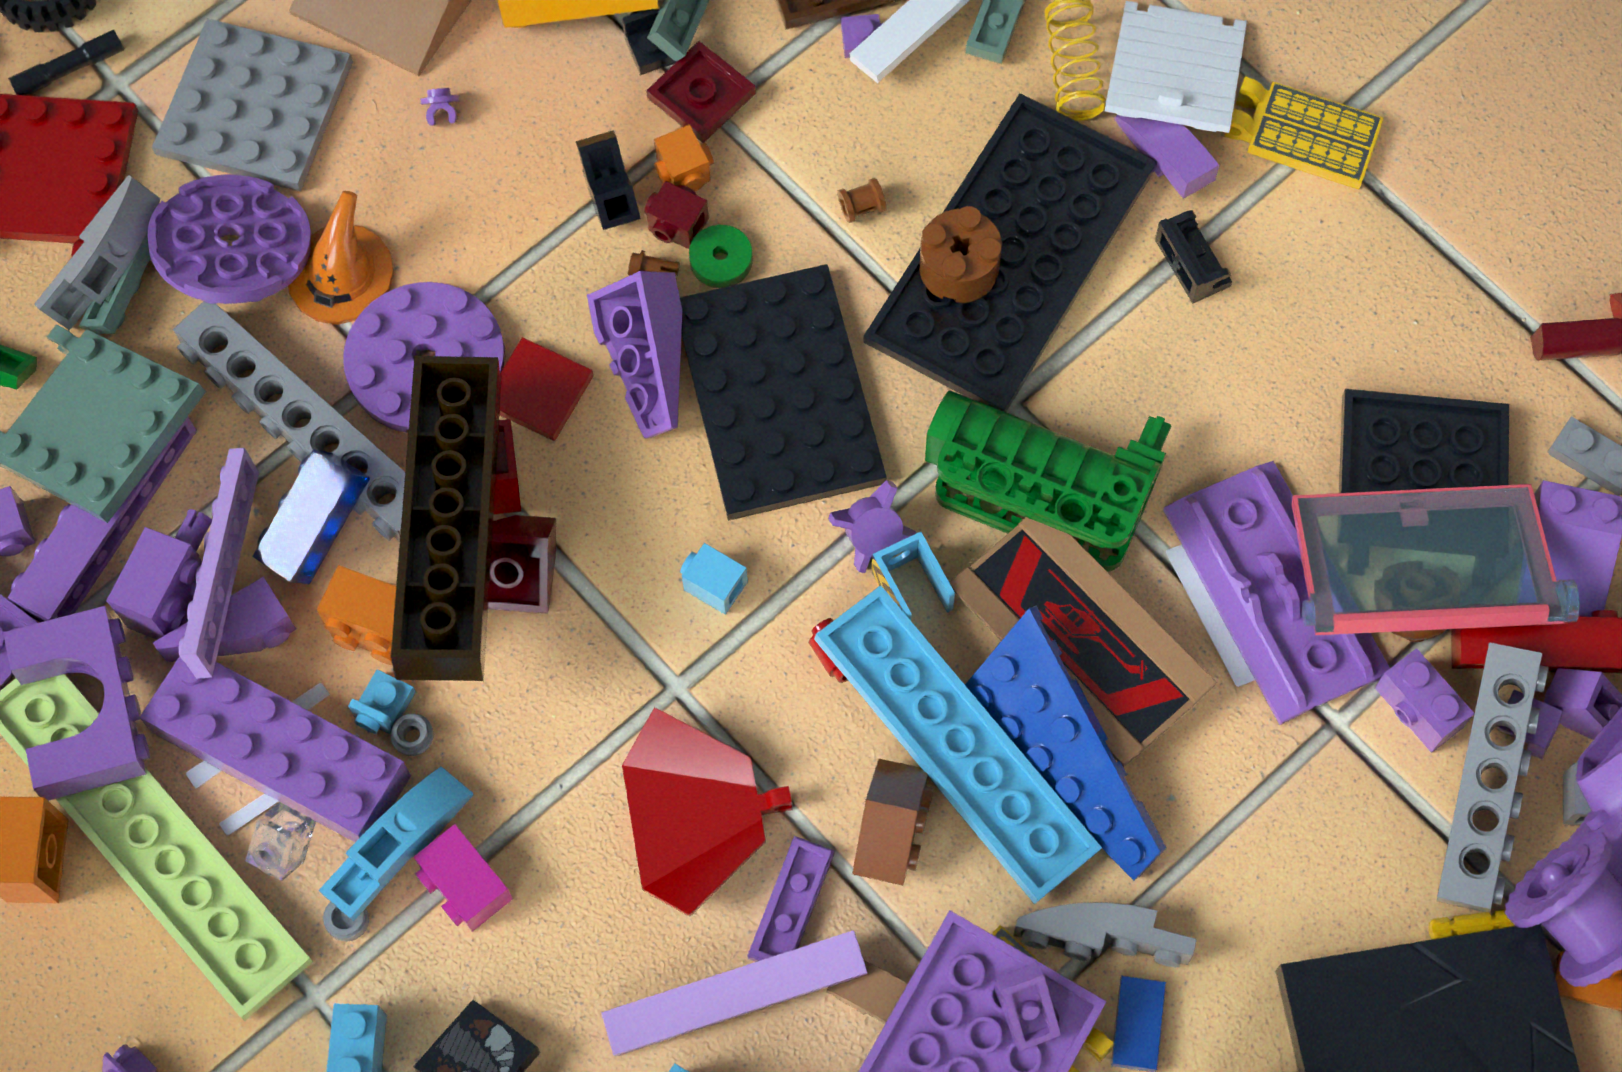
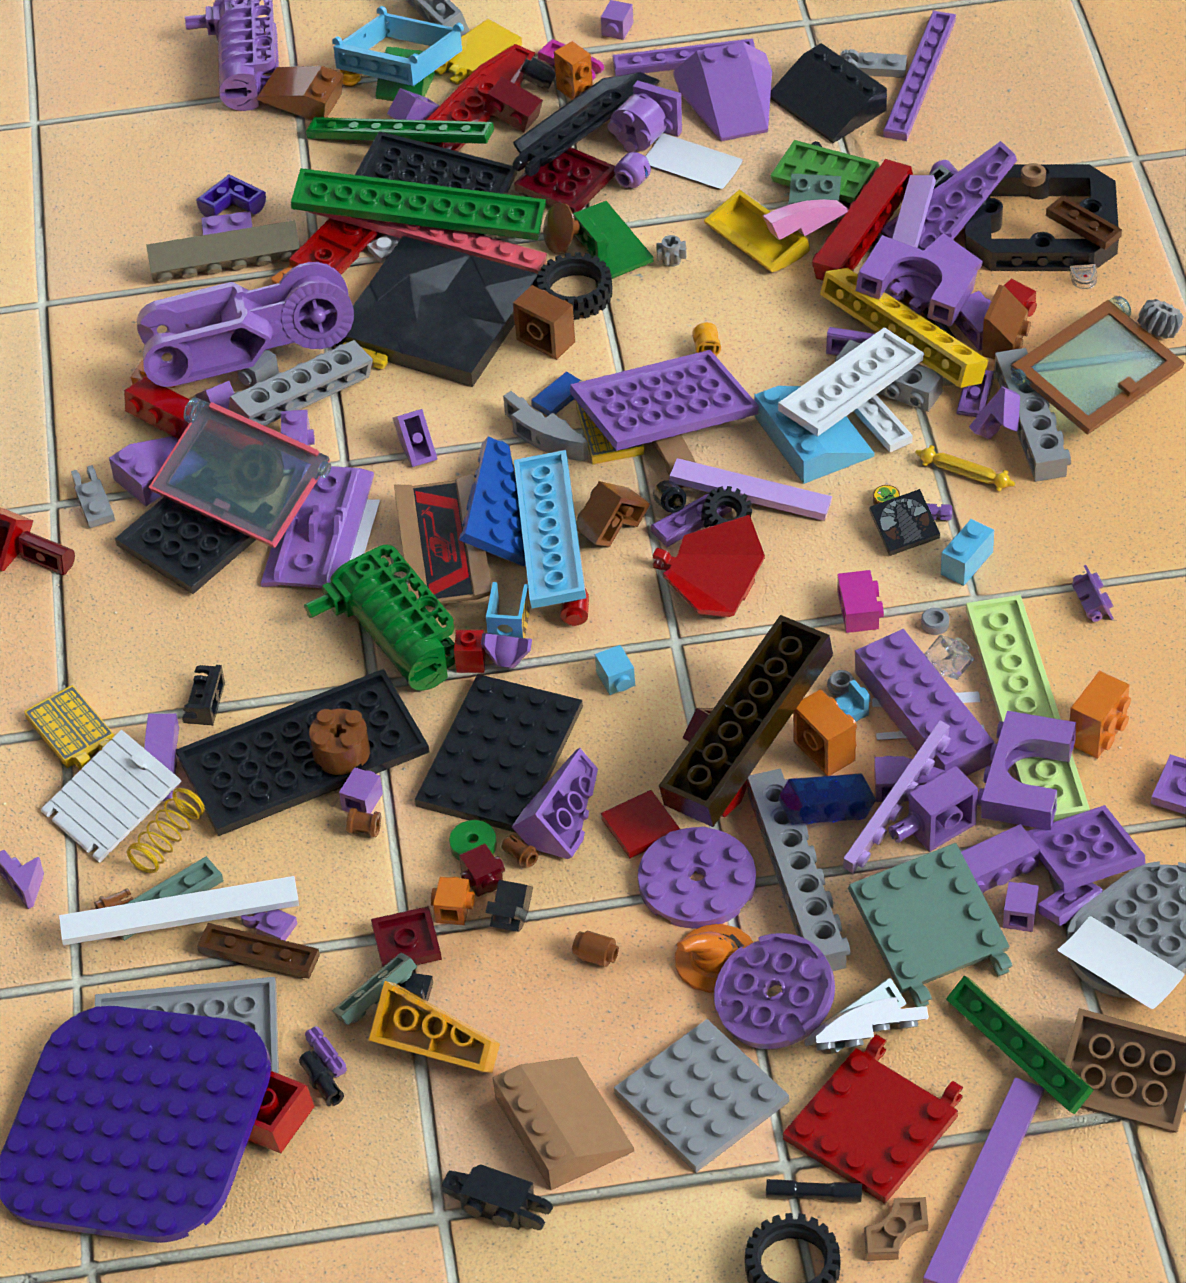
camera: 145 degrees left, 20 degrees down
(393, 840) = (882, 623): medium azure slope -> none
(440, 99) = (577, 1021): medium lavender plate -> none
(477, 194) = (595, 948): none -> dark orange brick
(753, 940) = (724, 498): none -> black tyre
(834, 903) = (669, 496): none -> black brick
(894, 233) = (361, 791): none -> medium lavender brick
(918, 496) = (469, 652): none -> red brick
(1027, 1006) = (611, 391): medium lavender slope -> none
(1272, 808) = (415, 437): none -> medium lavender slope

